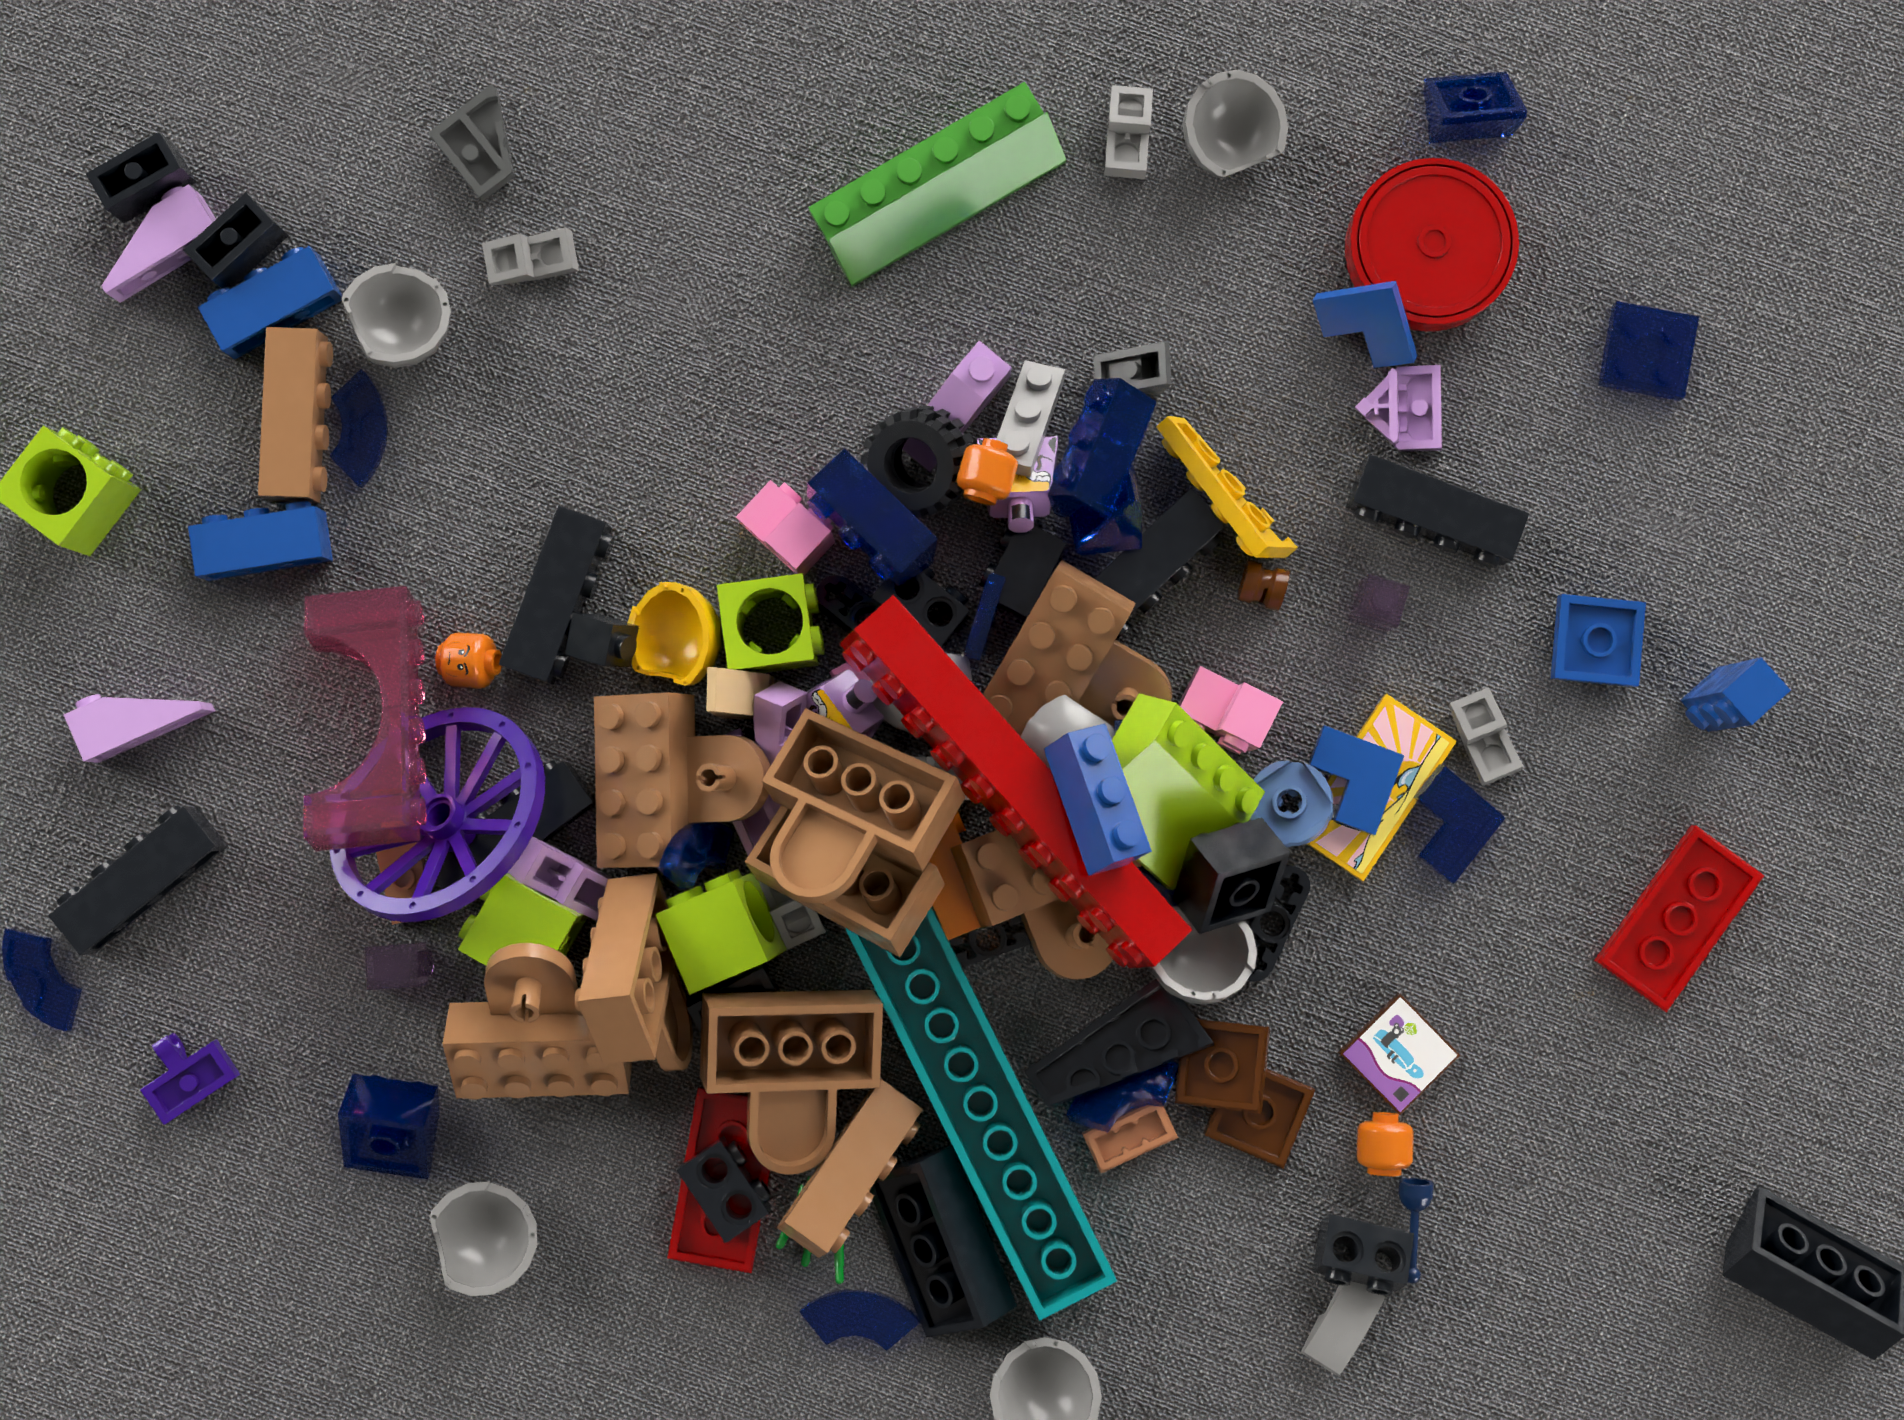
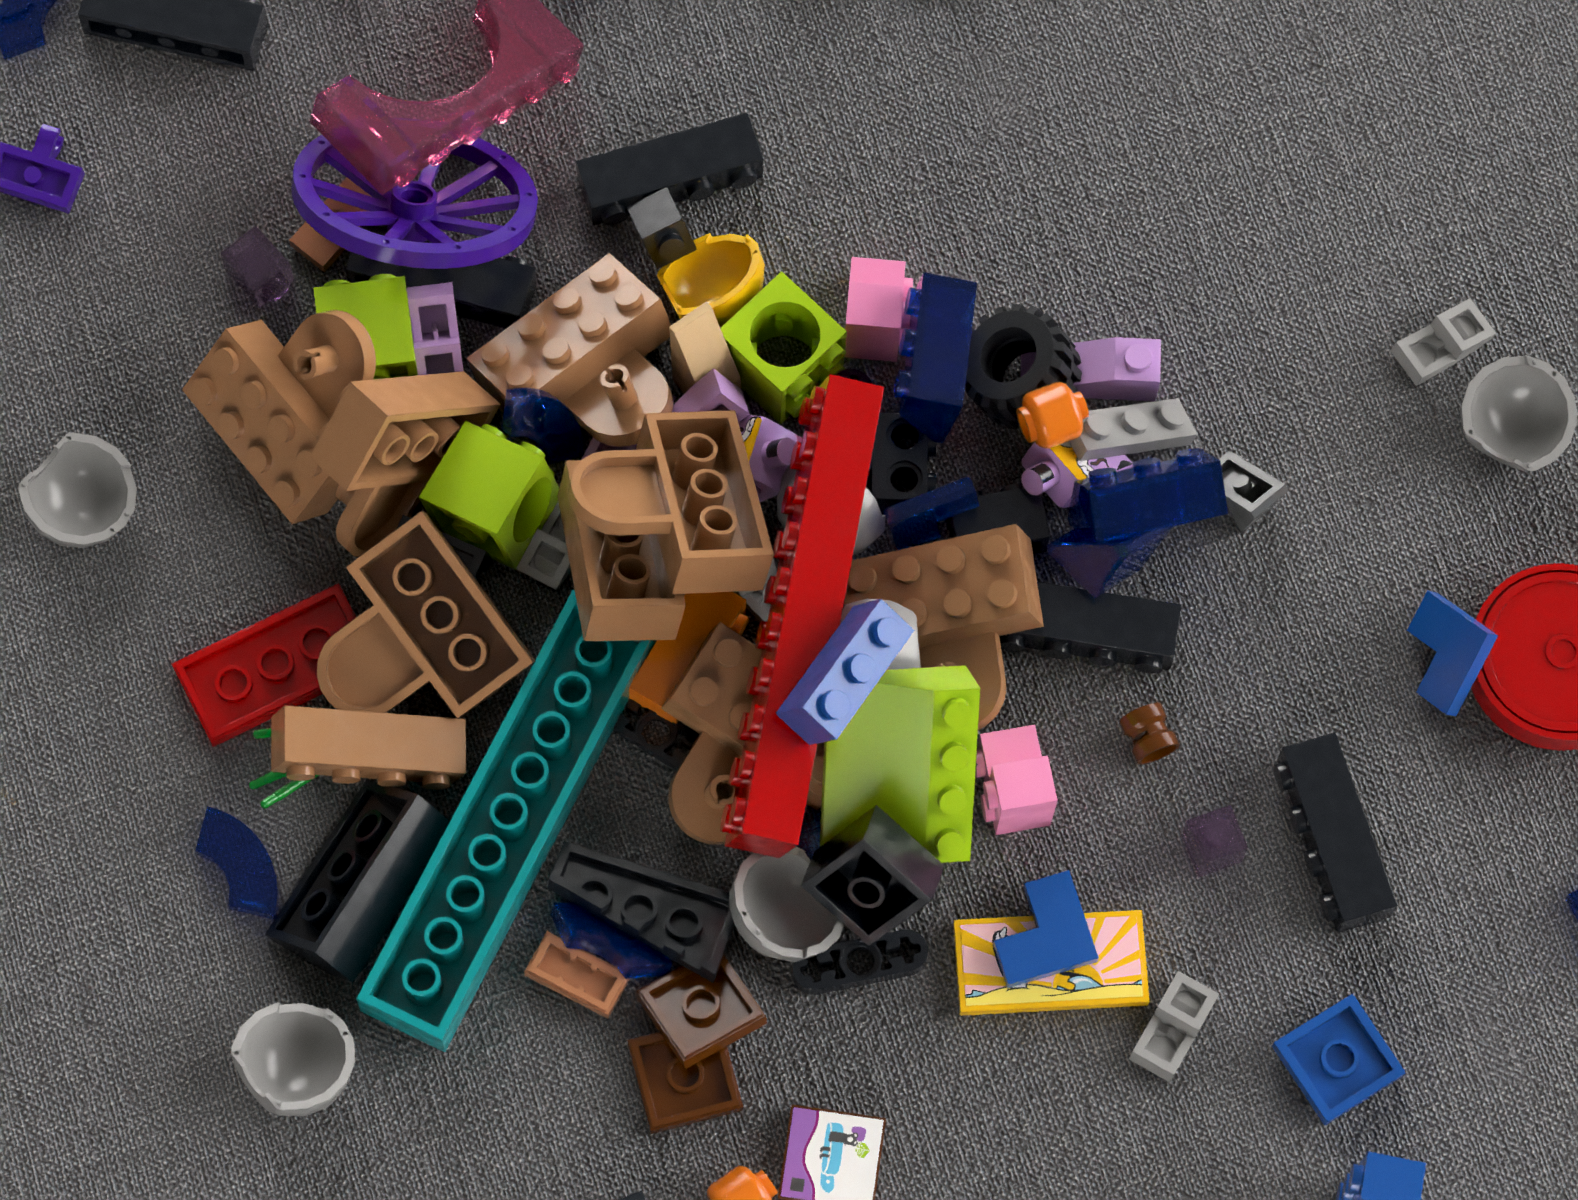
camera: 55 degrees right, 15 degrees down
(389, 1125) = (115, 357): clear blue slope -> none
(468, 660) = (559, 139): orange head -> none
(715, 1193) = (260, 658): black brick -> none
(938, 183) = (1267, 221): bright green slope -> none
(1224, 490) = (1202, 640): yellow wing -> none
(1314, 809) = (984, 917): medium blue plate -> none
(1407, 408) = (1406, 746): lavender slope -> none
(1466, 823) = (1087, 1062): clear blue tile -> none

